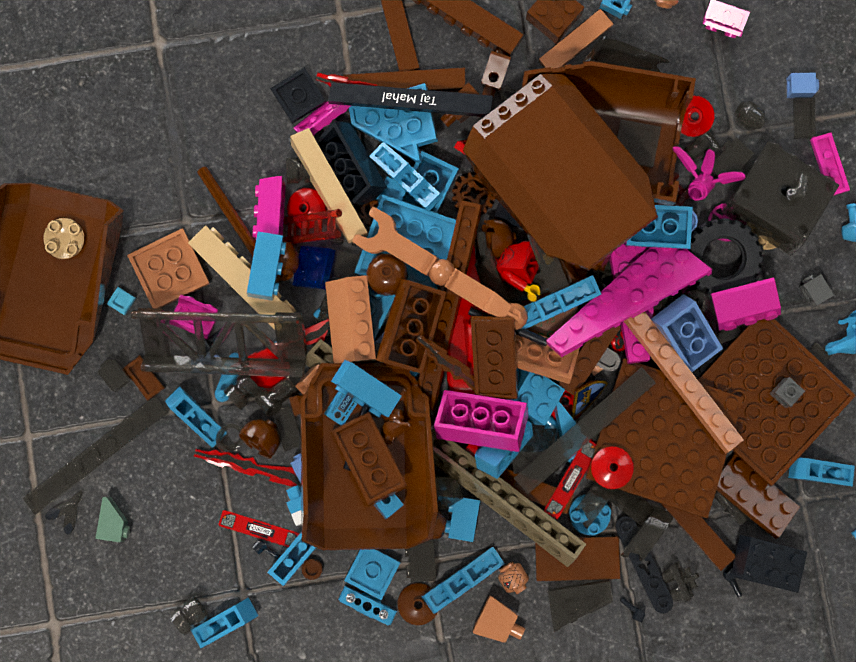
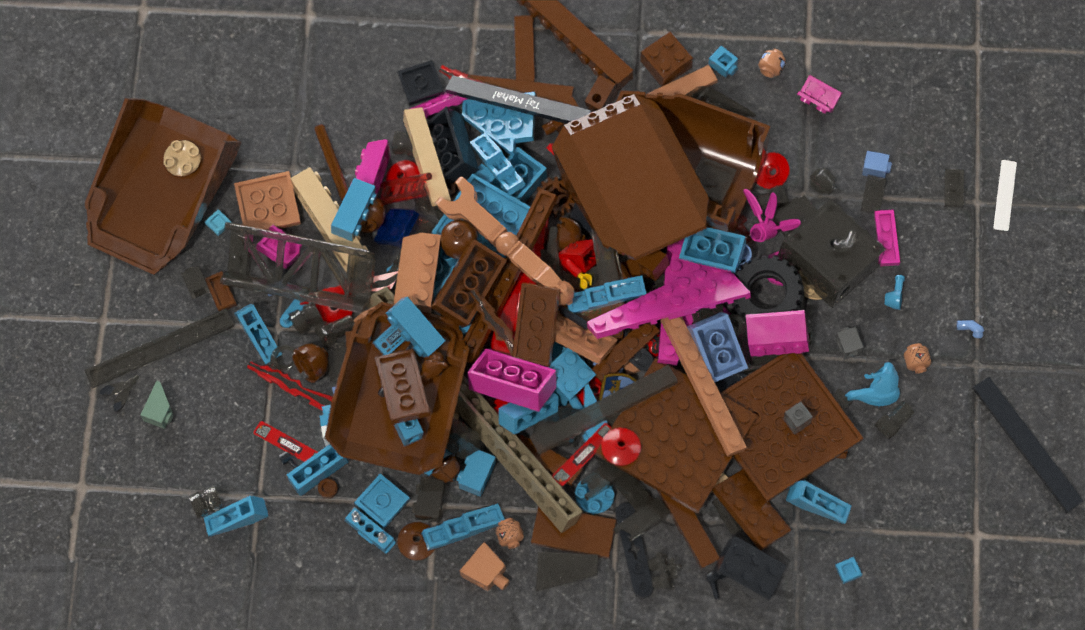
camera: 15 degrees right, 15 degrees down
(638, 613) = (618, 593): black hand -> none

